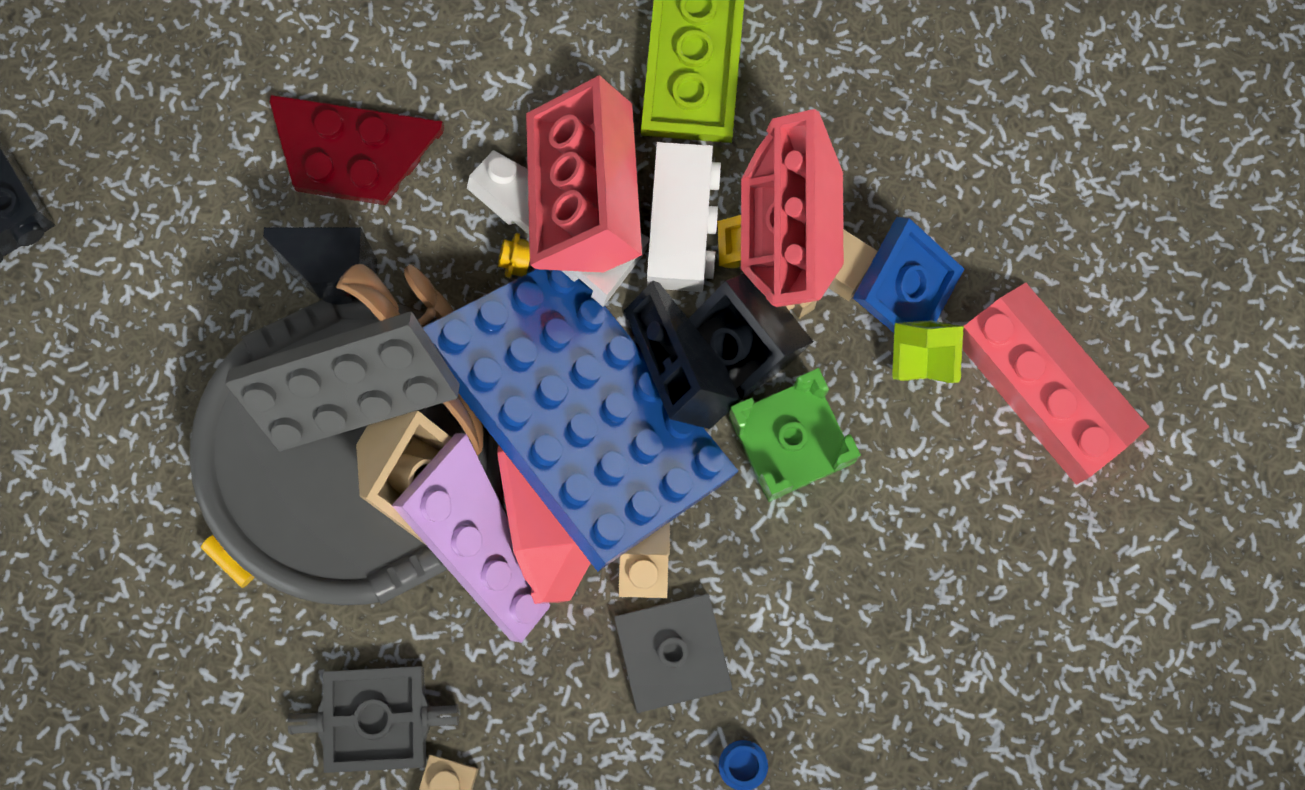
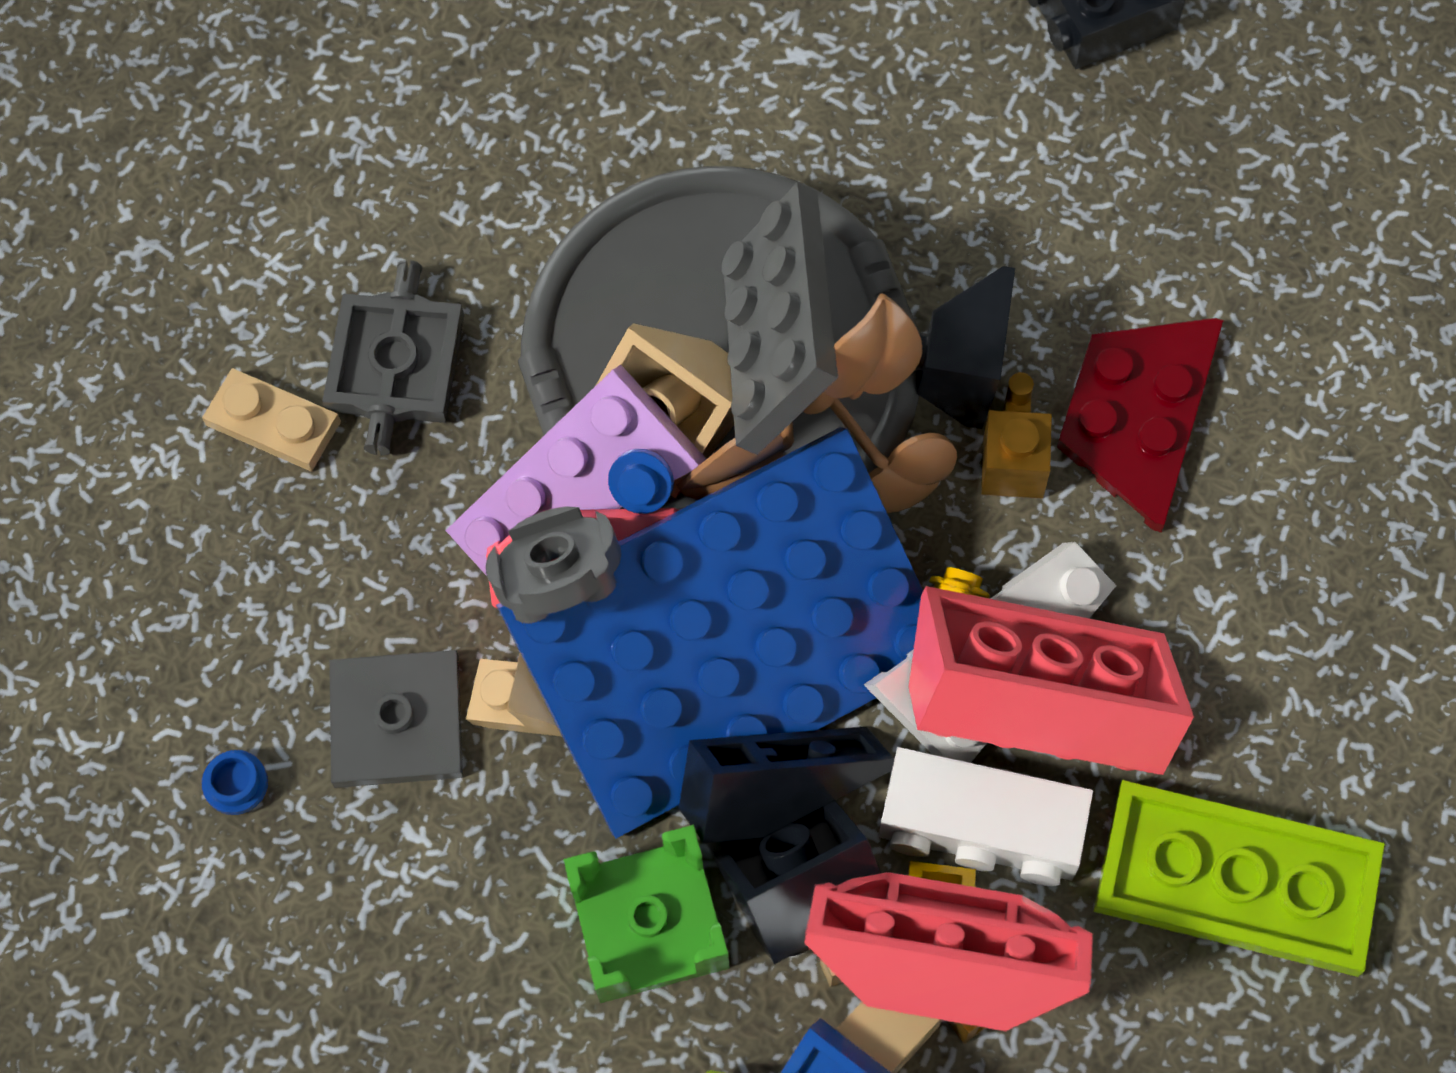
camera: 100 degrees right, 10 degrees down
(398, 226) = (1016, 445): none -> pearl gold brick
(482, 476) = (640, 481): none -> blue plate
(590, 521) = (534, 585): none -> dark grey plate

